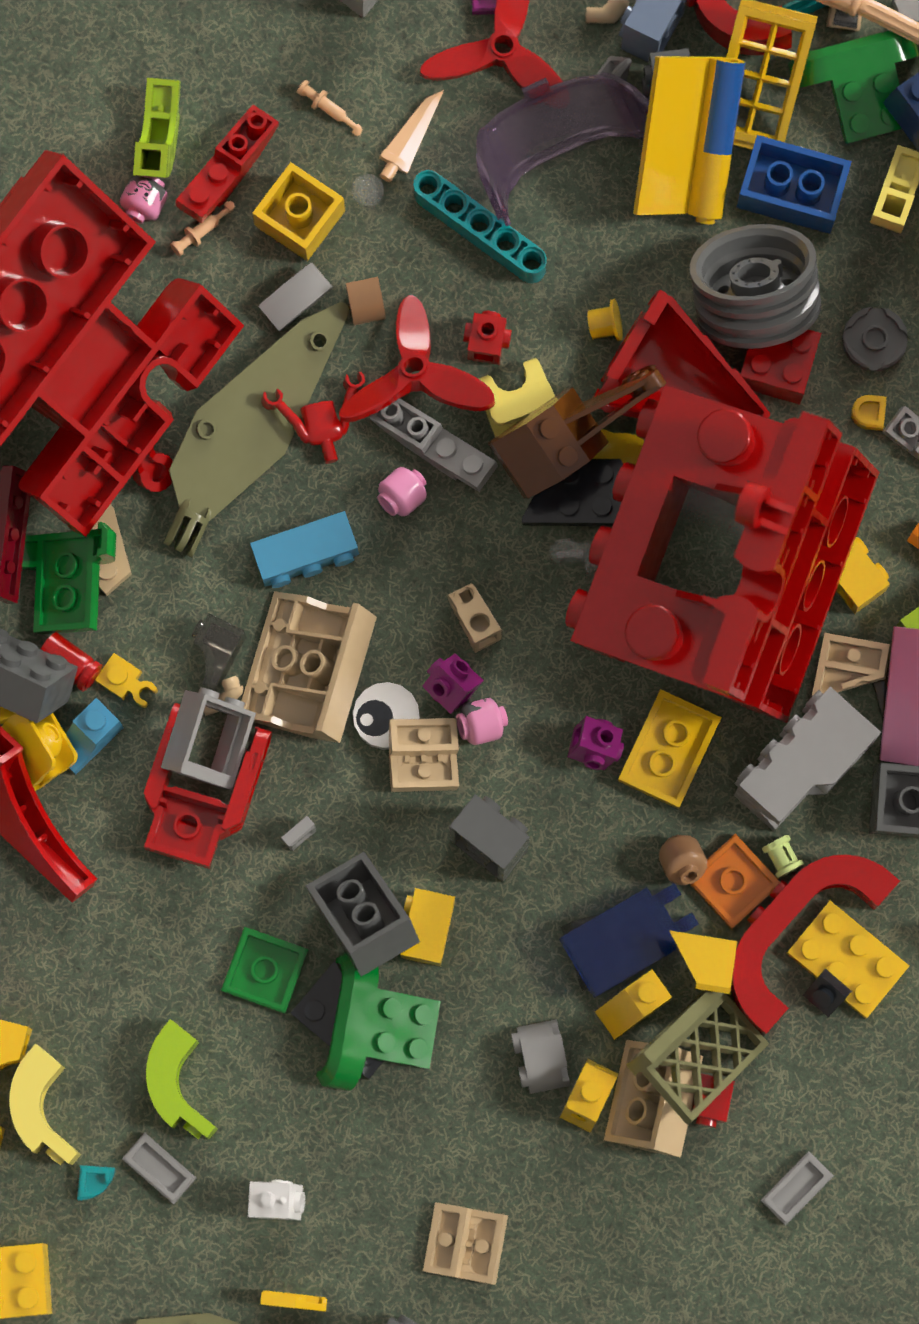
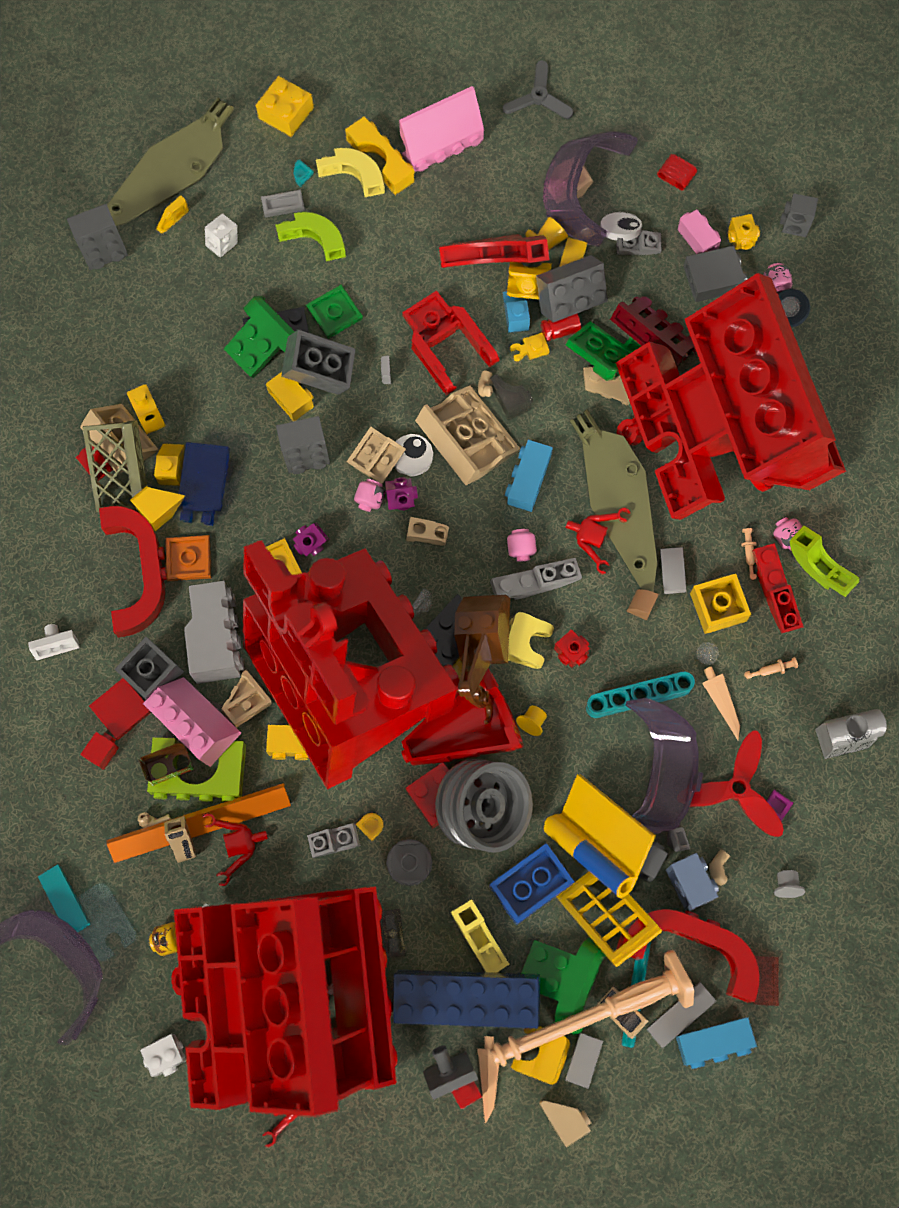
camera: 130 degrees right, 5 degrees down
(230, 746) = (451, 343): light grey window -> none
(435, 379) = (595, 607): red piece -> none
(465, 1243) = (130, 307): tan slope -> none
(542, 1056) = (185, 403): light grey cylinder -> none
(681, 858) = (217, 537): medium nougat head -> none
(783, 856) = (171, 591): yellowish green bush -> none
(797, 1188) = (20, 473): light grey tile -> none
(827, 993) = (94, 556): black plate -> none
(850, 955) = (102, 582): yellow plate -> none

